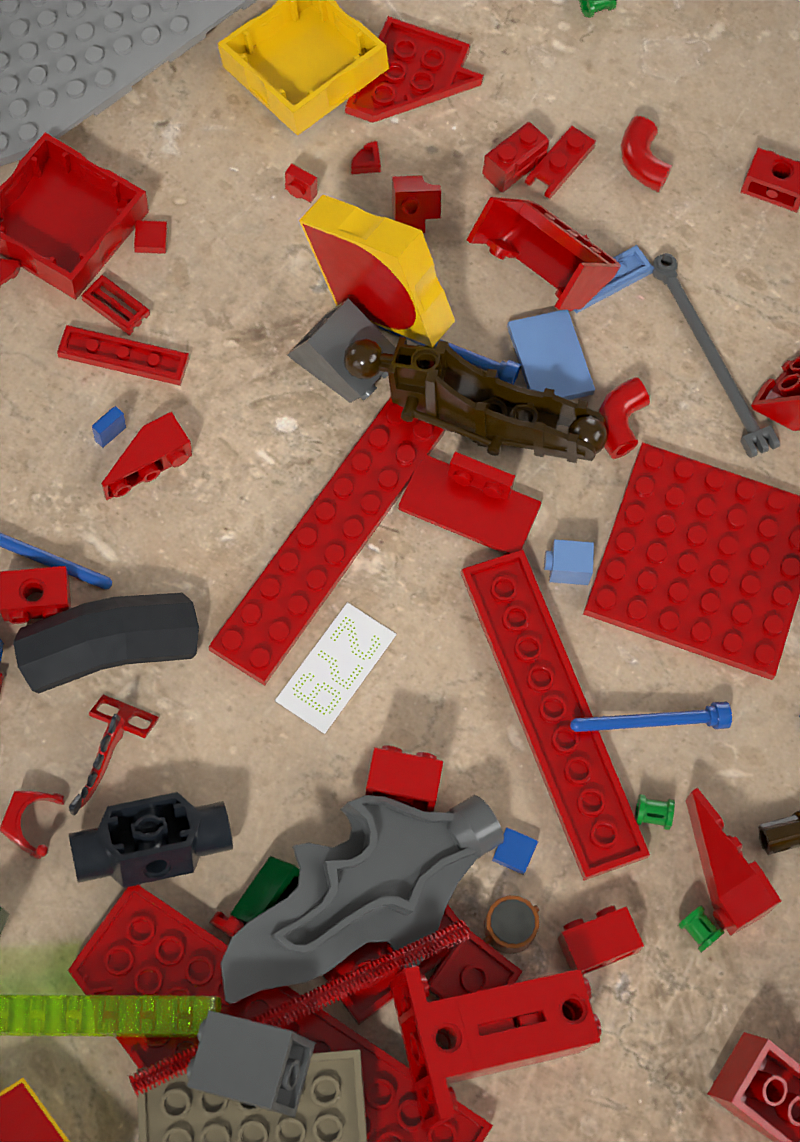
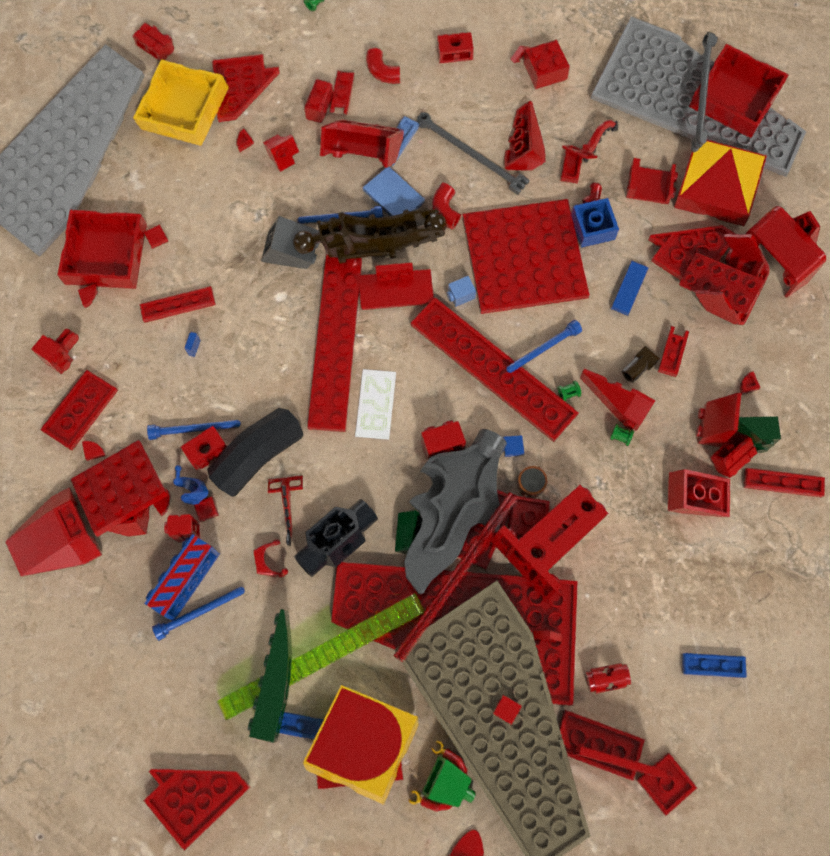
camera: 20 degrees left, 5 degrees up
(134, 320) = (143, 280): red tile -> none
(152, 450) = (222, 344): red slope -> none
(228, 926) = (398, 557): red tile -> none
(250, 1063) = (449, 616): dark grey slope -> none
(300, 183) = (217, 169): red plate -> none
(379, 268) = (286, 191): tile -> none
(600, 940) = (578, 467): red brick -> none

